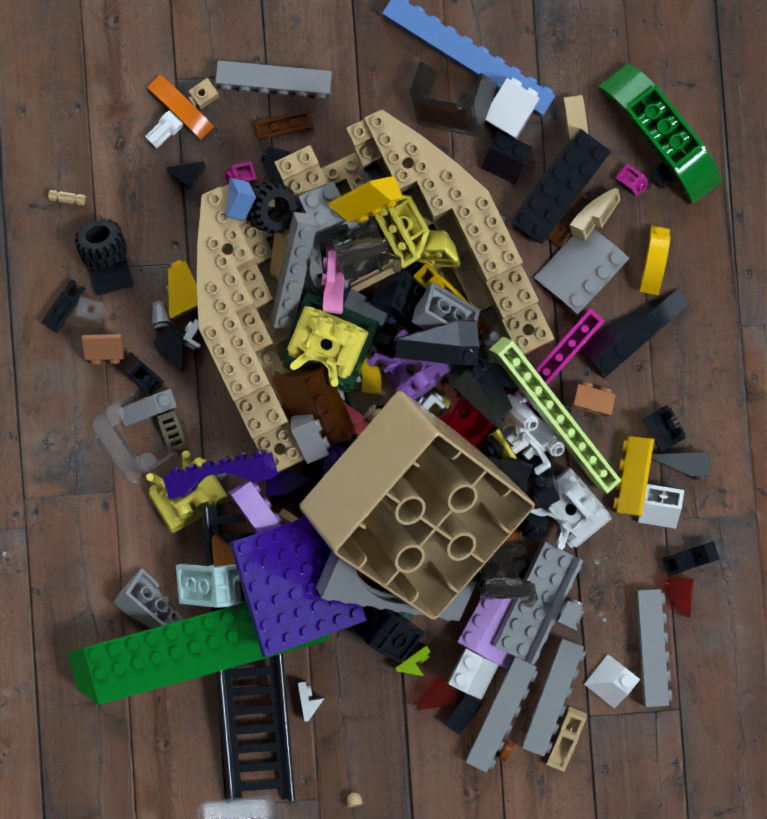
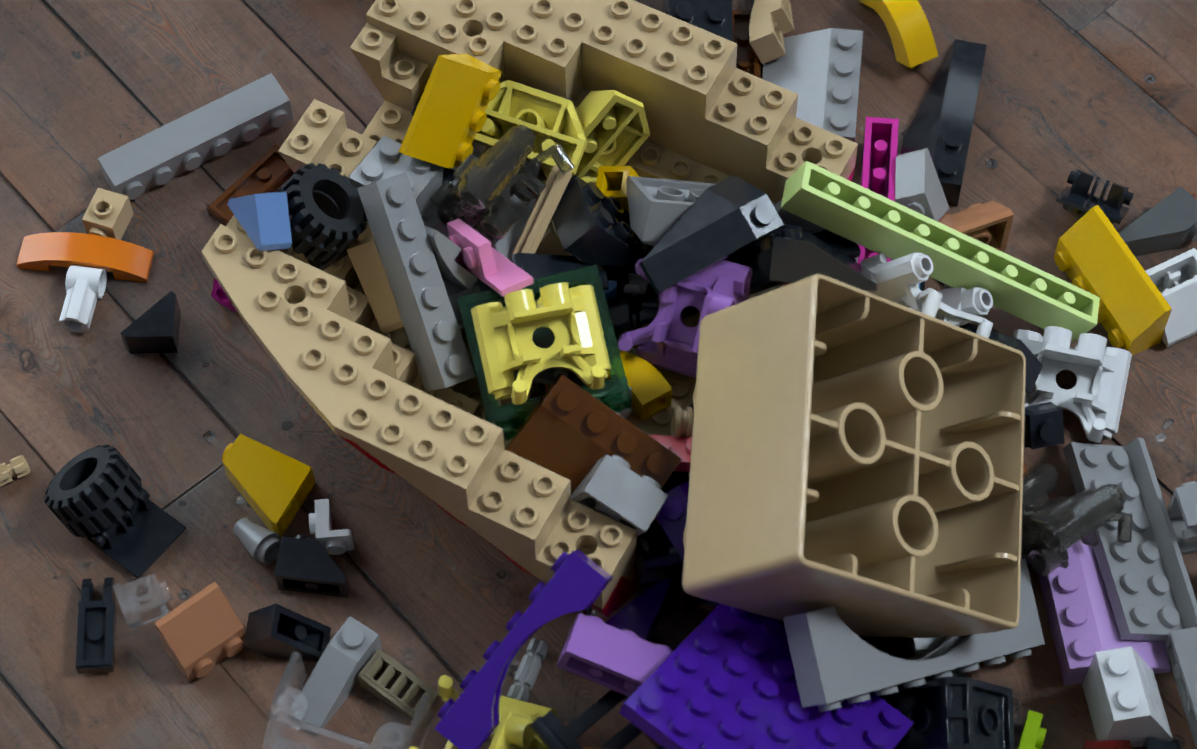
camera: 35 degrees left, 25 degrees down
(583, 365) = (919, 185): none -> light grey slope

